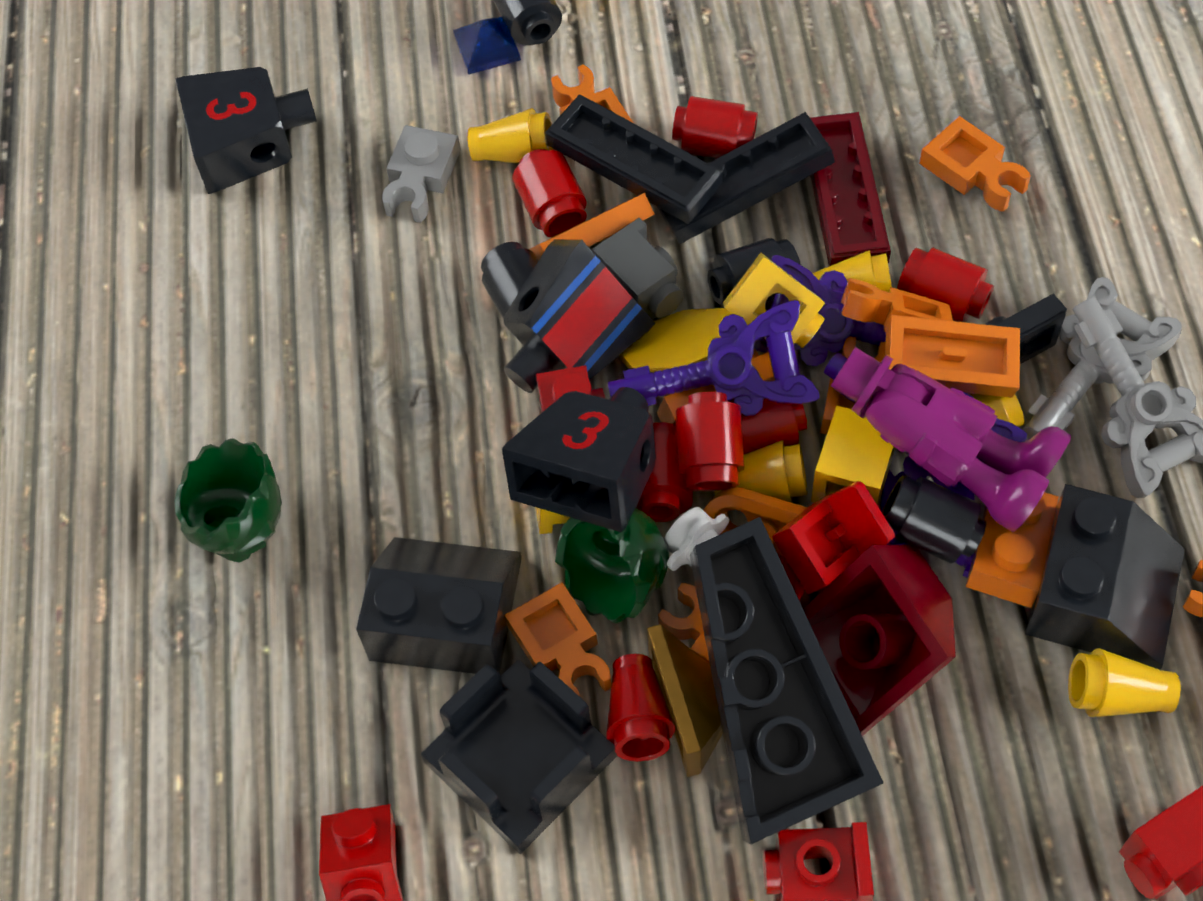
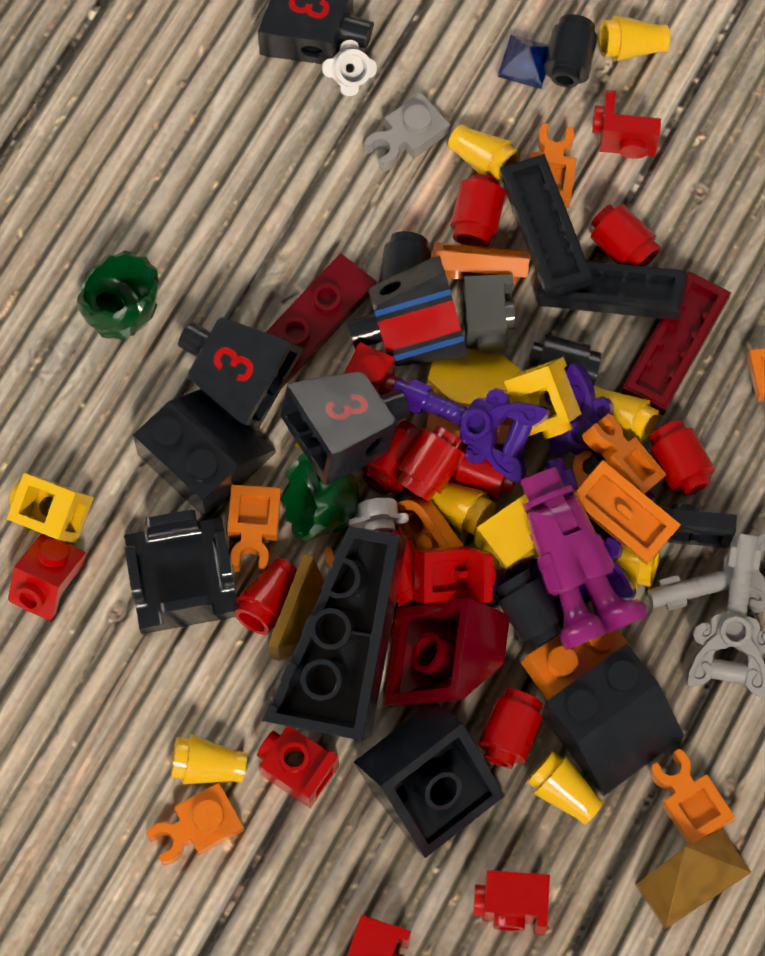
camera: 30 degrees right, 10 degrees up
(280, 776) = (66, 514): none -> yellow brick
(324, 135) = (362, 68): none -> white plate
(418, 484) = (239, 367): none -> black torso
(458, 402) = (323, 308): none -> dark red plate
(635, 42) = (625, 134): none -> red bracket
(974, 778) = (430, 778): none -> black slope
(1014, 663) = (511, 728): none -> red brick

